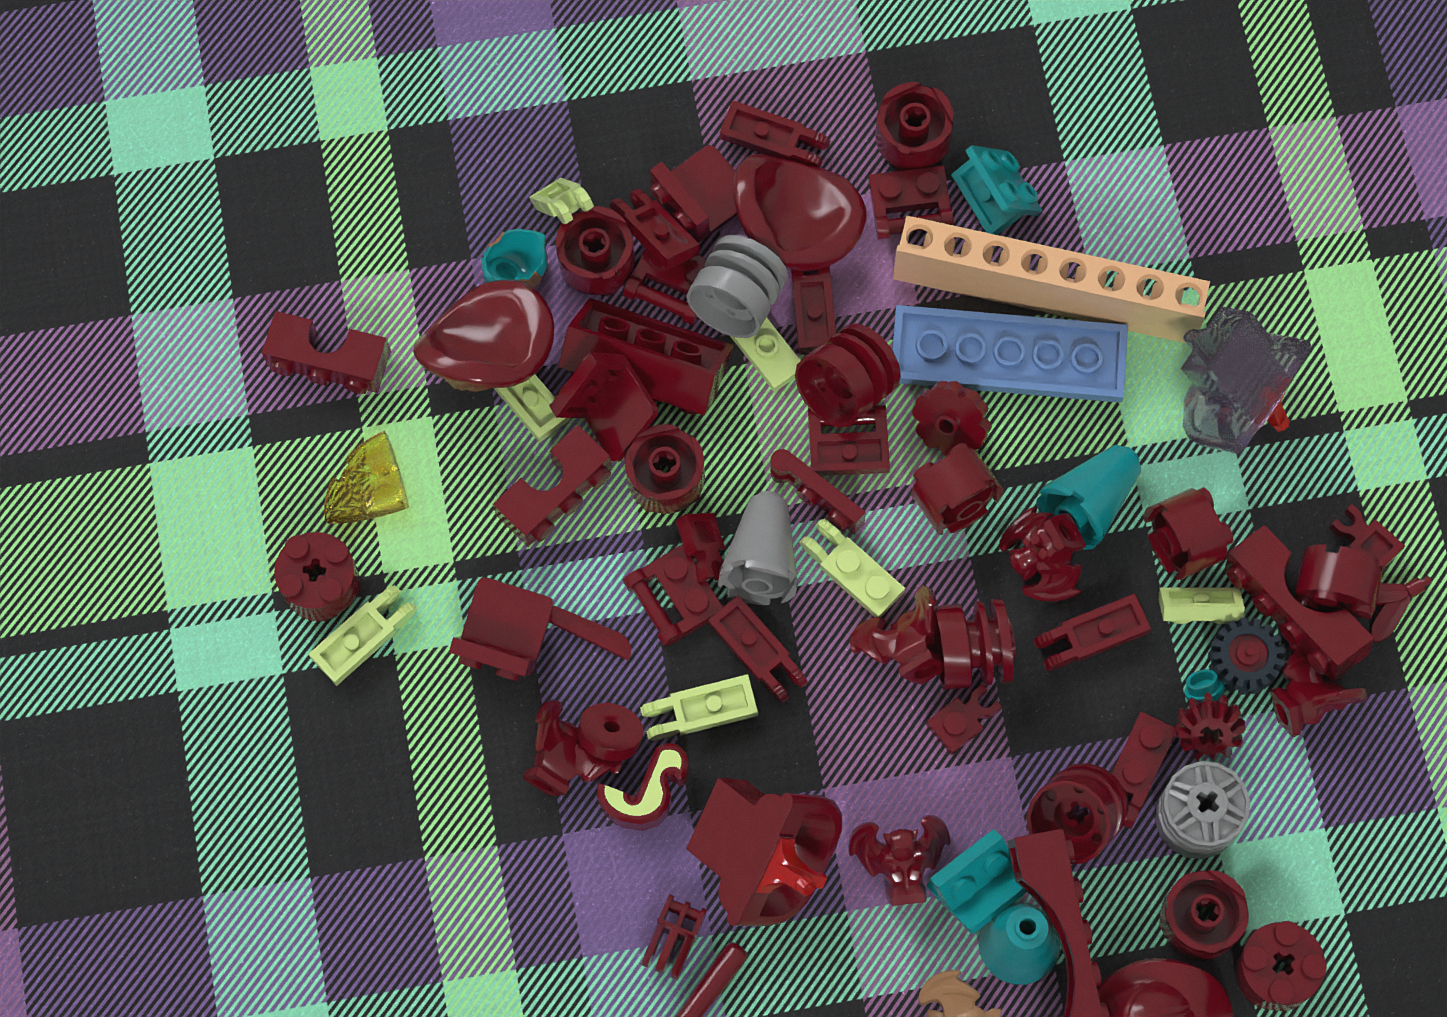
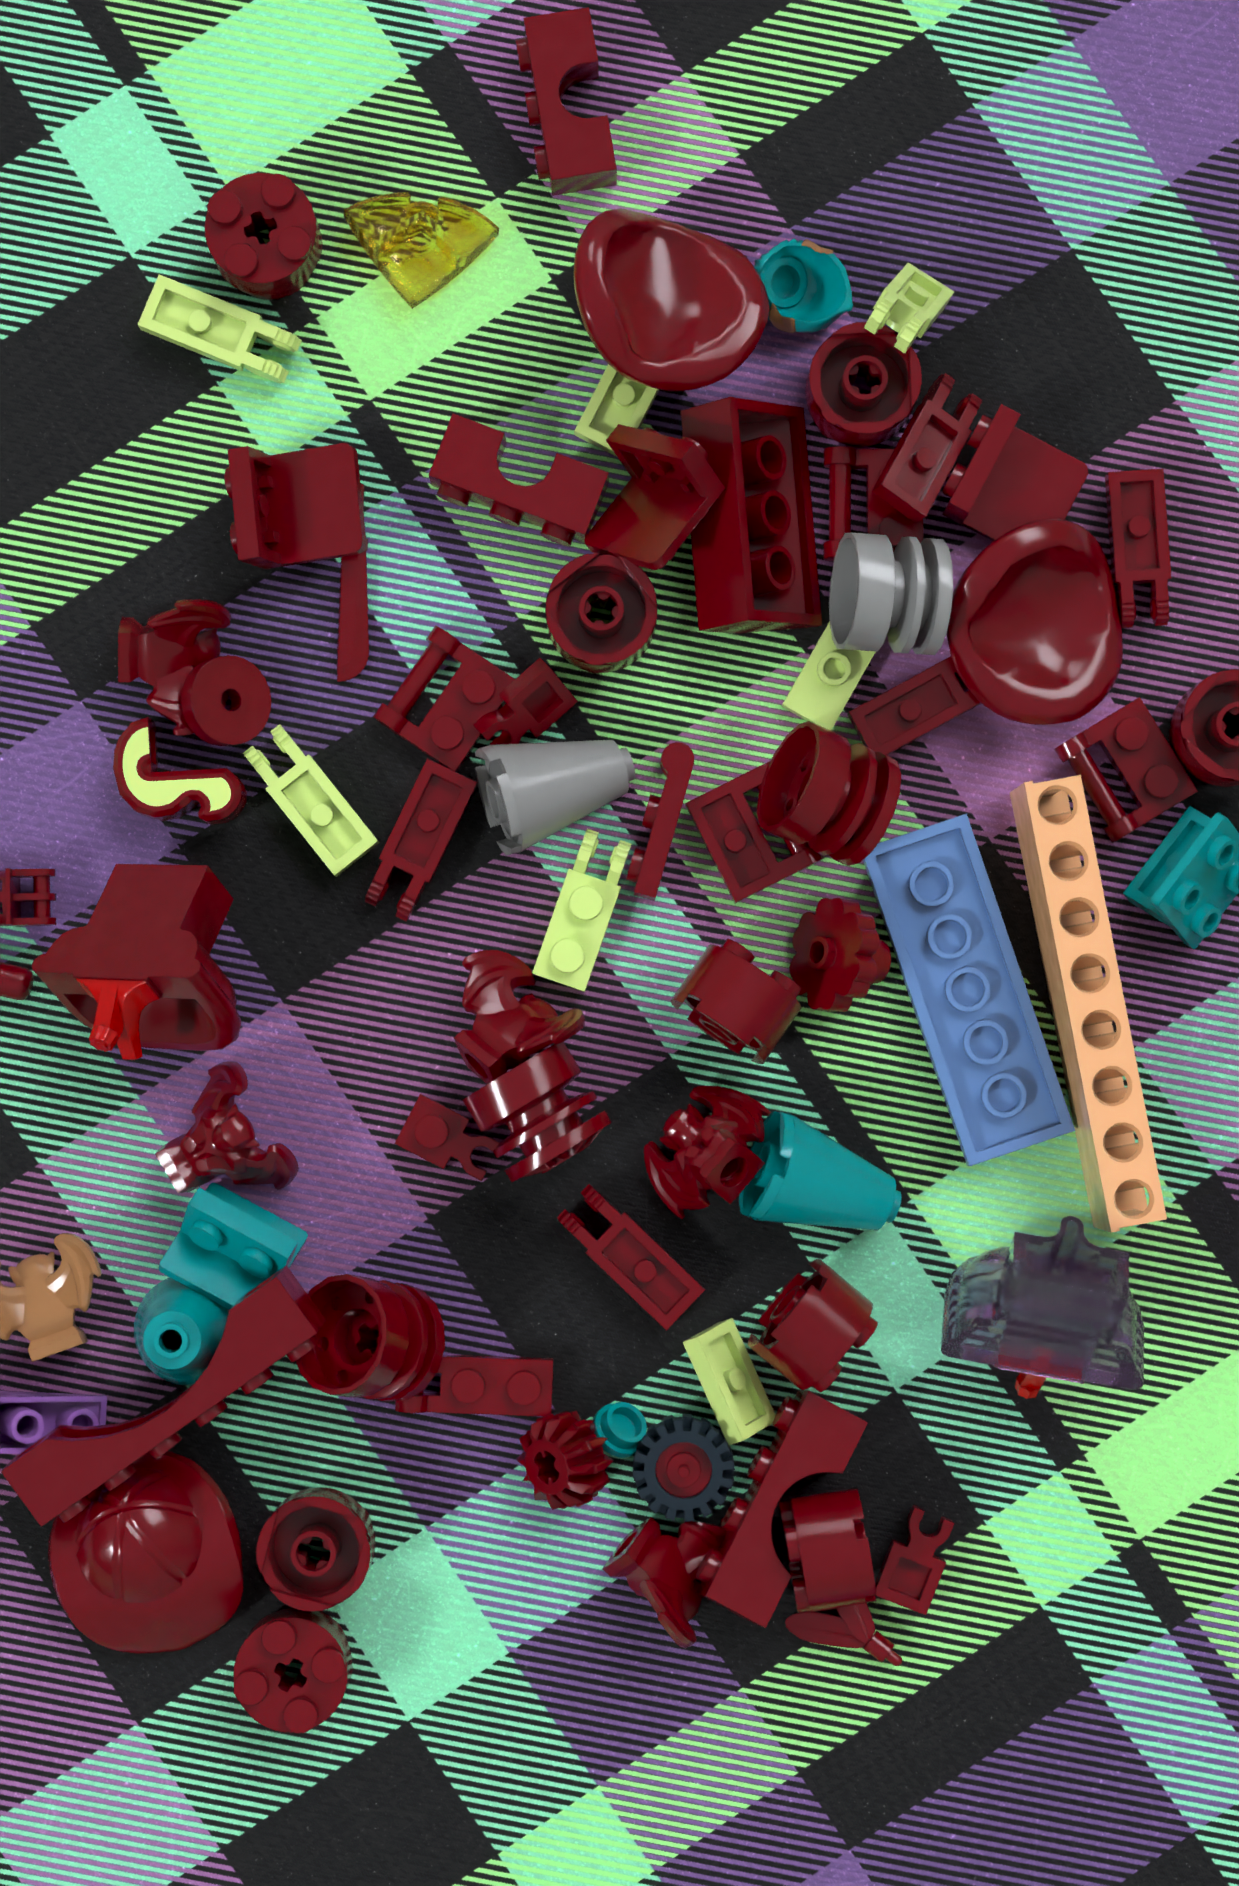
camera: 60 degrees right, 15 degrees up
(1199, 833) = (480, 1479): light grey wheel -> none

